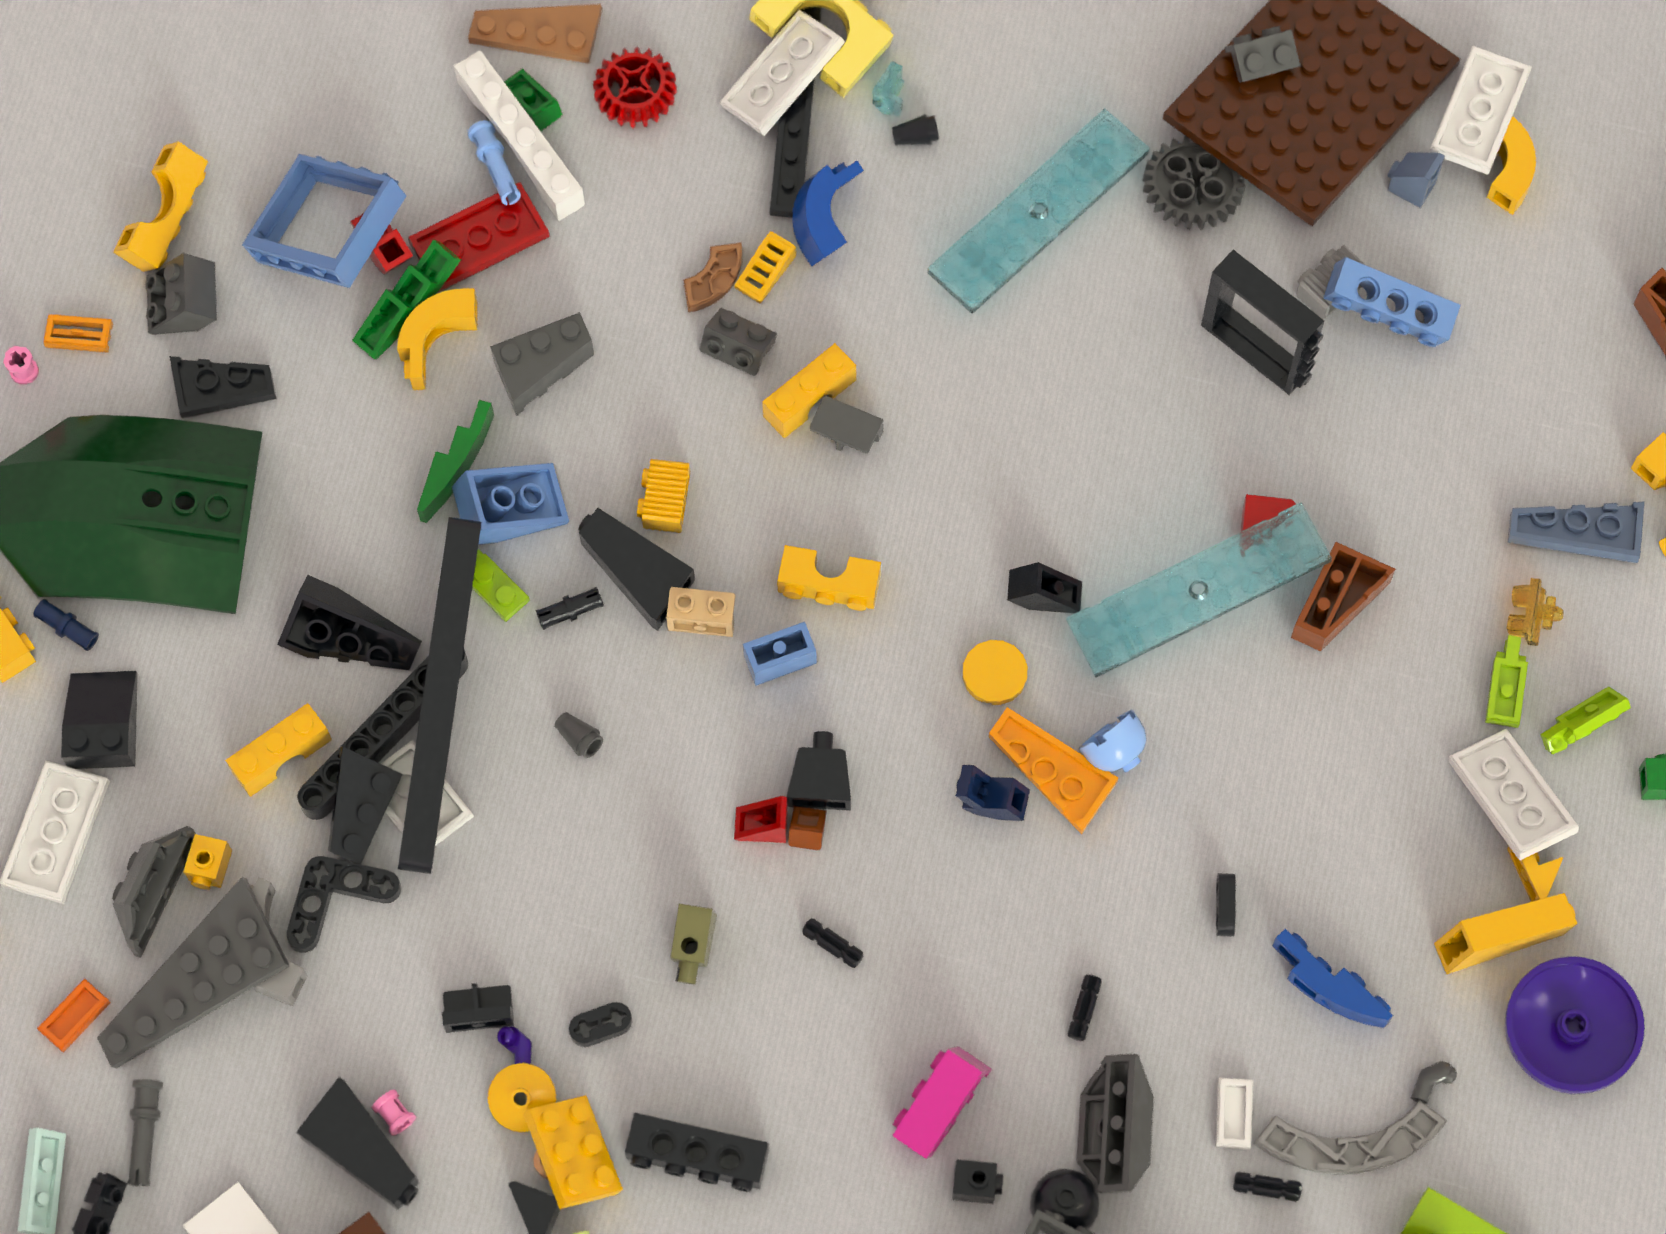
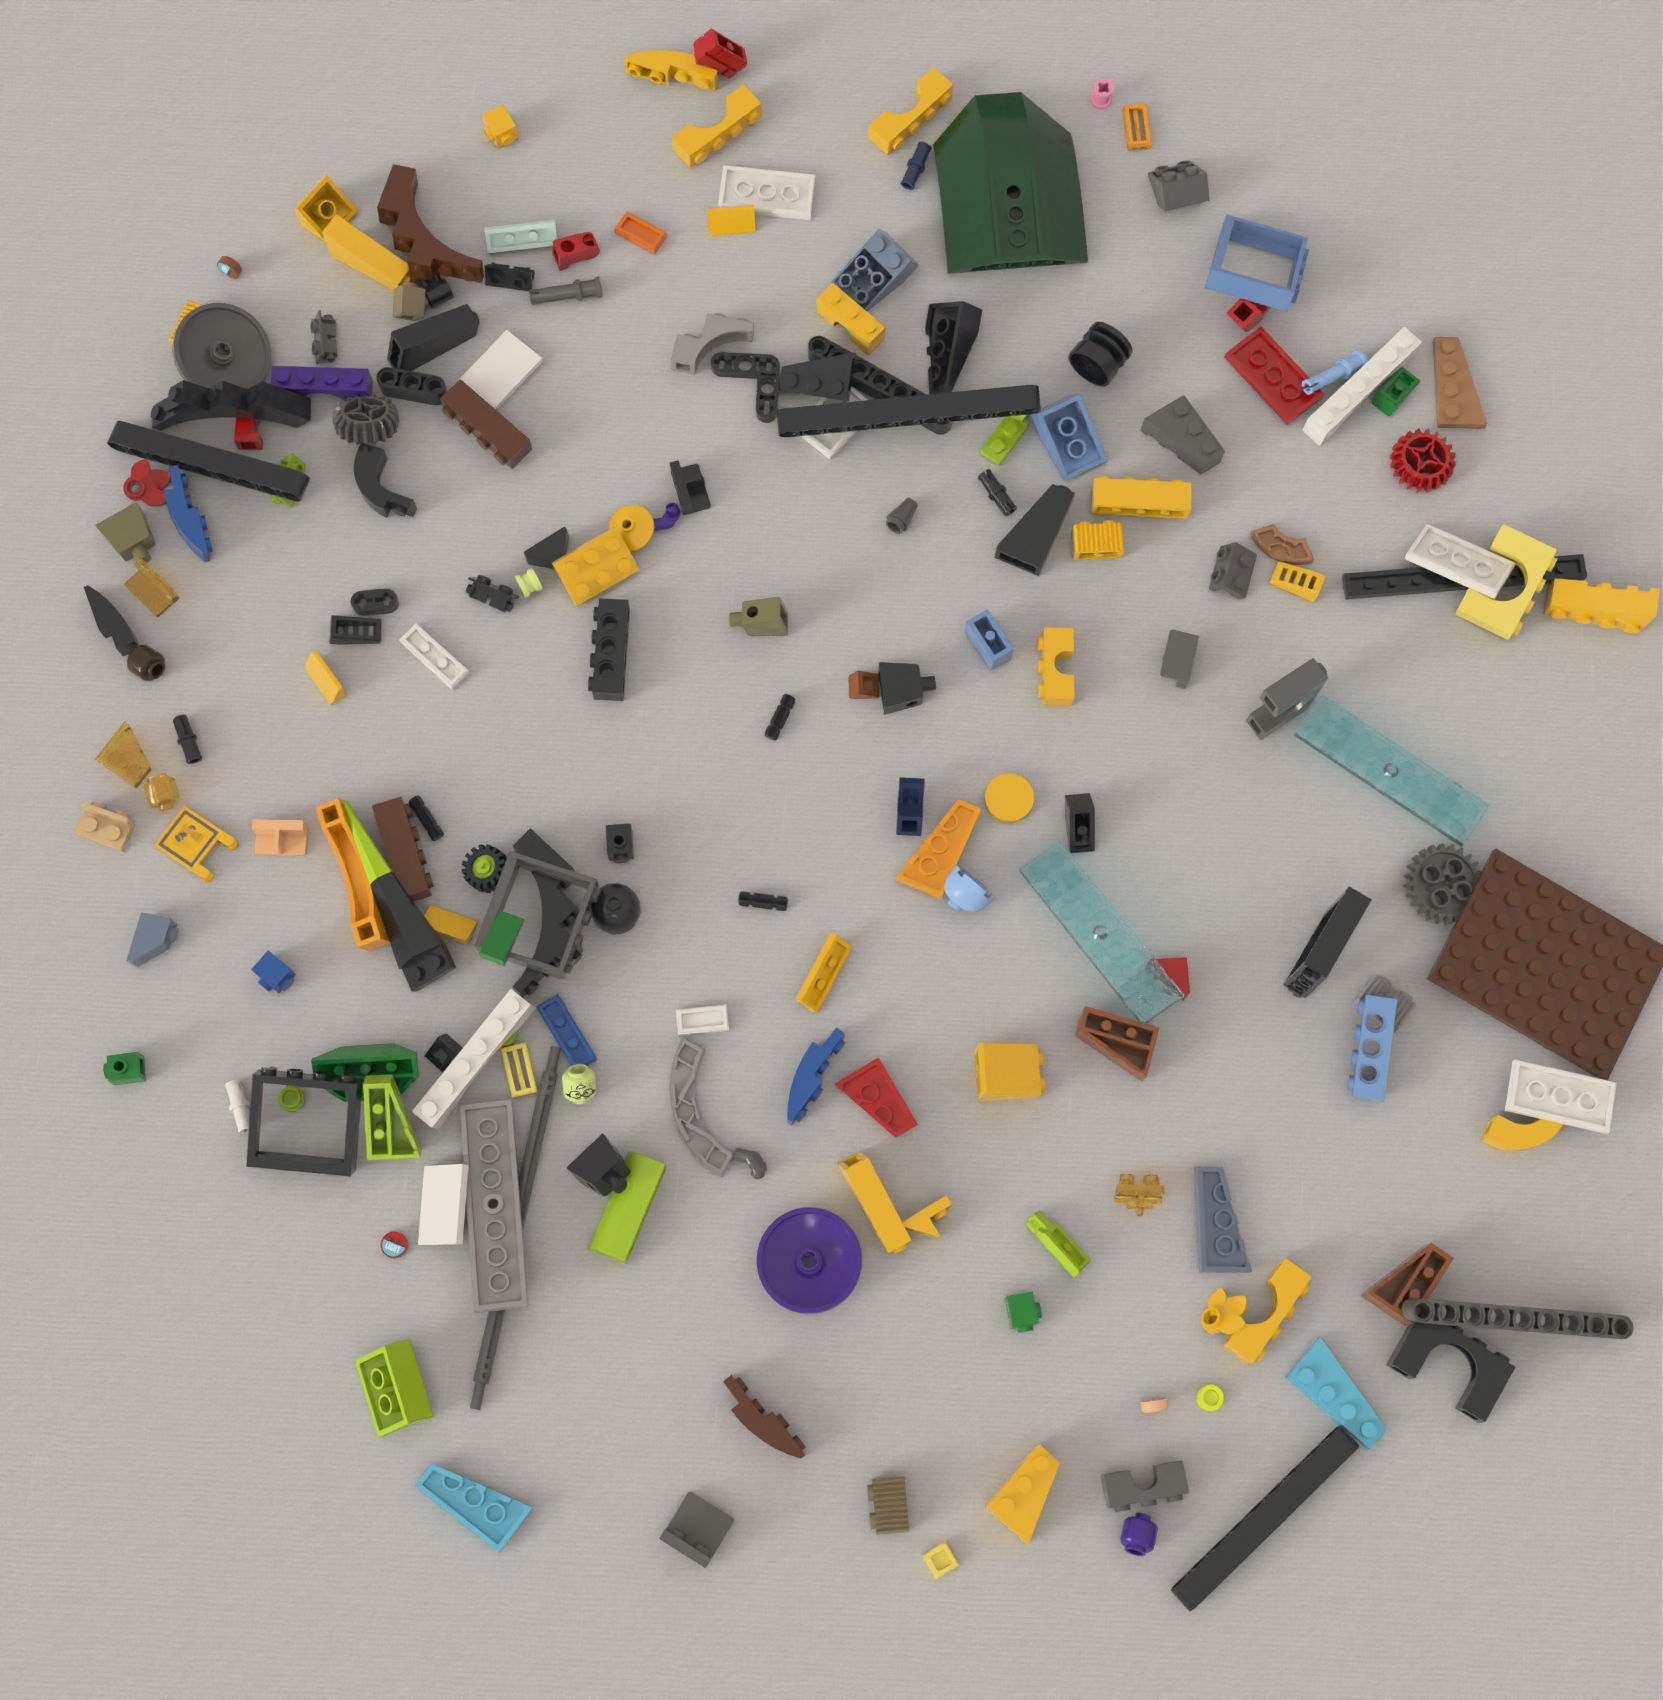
camera: 75 degrees right, 5 degrees up
(81, 1110) = (574, 249): none -> red leg
(88, 885) = (731, 220): none -> yellow slope
(100, 720) = (851, 202): black slope -> none
(149, 885) = (736, 258): dark grey wedge -> none
(178, 175) = (1273, 162): yellow arch -> none
(207, 862) = (761, 291): yellow brick -> none
(212, 966) = (684, 307): dark grey wing -> none
(213, 706) = (875, 270): none -> sand blue slope
(214, 387) = (1116, 225): black wing -> none
(354, 1142) = (578, 428): black slope -> none
(393, 1112) = (605, 446): bright pink bush -> none
(395, 305) = (1210, 335): green slope -> none
(407, 437) = (1100, 354): none -> black wheel
(432, 318) = (1194, 352): yellow arch -> none
(449, 467) = (1092, 394): green slope -> none
(598, 1016) = (687, 573): black beam -> none
(618, 429) = (1141, 497): none -> yellow brick
(701, 611) = (1010, 579): tan bracket -> none
(762, 821) = (861, 653): red slope -> none
(791, 403) = (1216, 634): yellow arch -> none
(812, 214) = (1335, 606): blue arch -> none
(887, 90) = (1469, 642): clear light blue bracket -> none
(916, 131) = (1438, 672): black cone -> none
(938, 302) = (1287, 698): none -> dark grey arch
(939, 1100) = (675, 807): dark pink wedge -> none
(1116, 1124) = (674, 934): dark grey wedge -> none
(1195, 944) = (823, 972): none -> yellow plate
(1225, 904) = (858, 990): black beam -> none
(1264, 54) = (1564, 916): dark grey bracket -> none
(1267, 1186) = (651, 1051): black axle -> none
(1362, 739) = (1008, 1072): none -> yellow slope
(1369, 904) = (879, 1097): none -> red wing
(1415, 176) = (1490, 1055): sand blue slope -> none
(1507, 685) = (1075, 1180): lime hinge -> none
(1513, 794) = (984, 1193): white tile -> none

